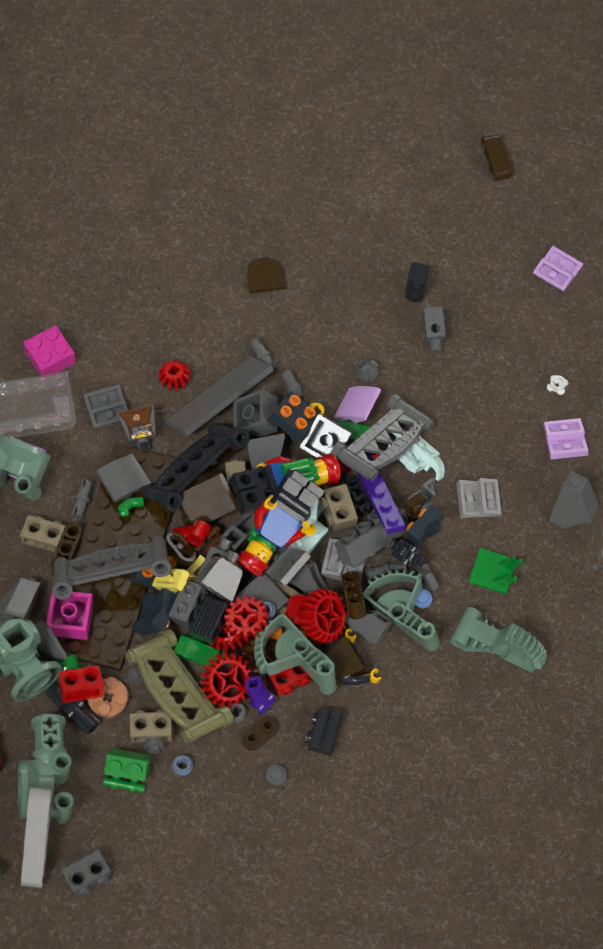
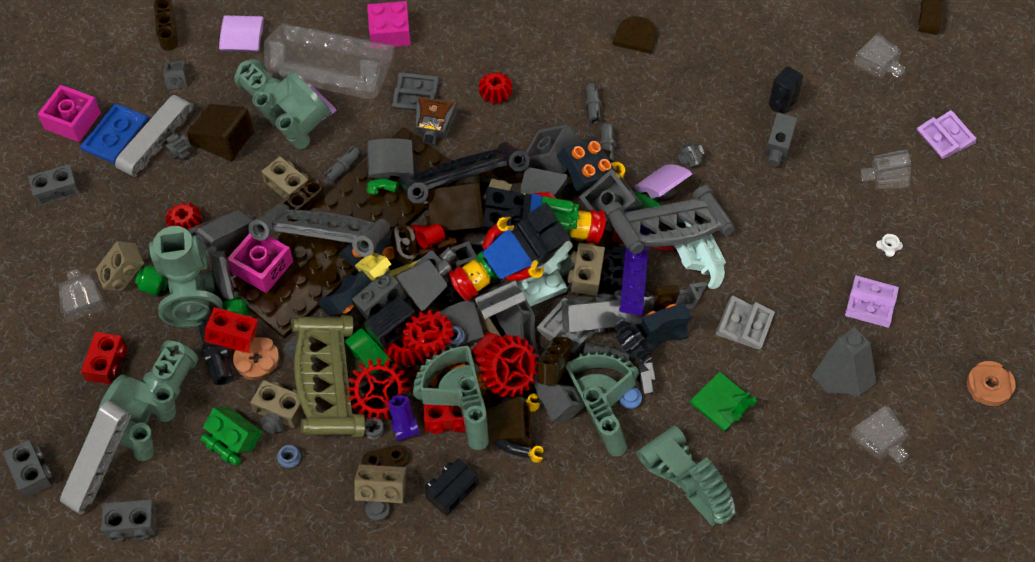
camera: 30 degrees right, 5 degrees down
(219, 395) = (528, 121): dark grey tile -> none
(270, 754) = (380, 483): none -> dark tan brick
(475, 219) = (879, 57): none -> clear torso
(530, 321) = (889, 170): none -> clear torso

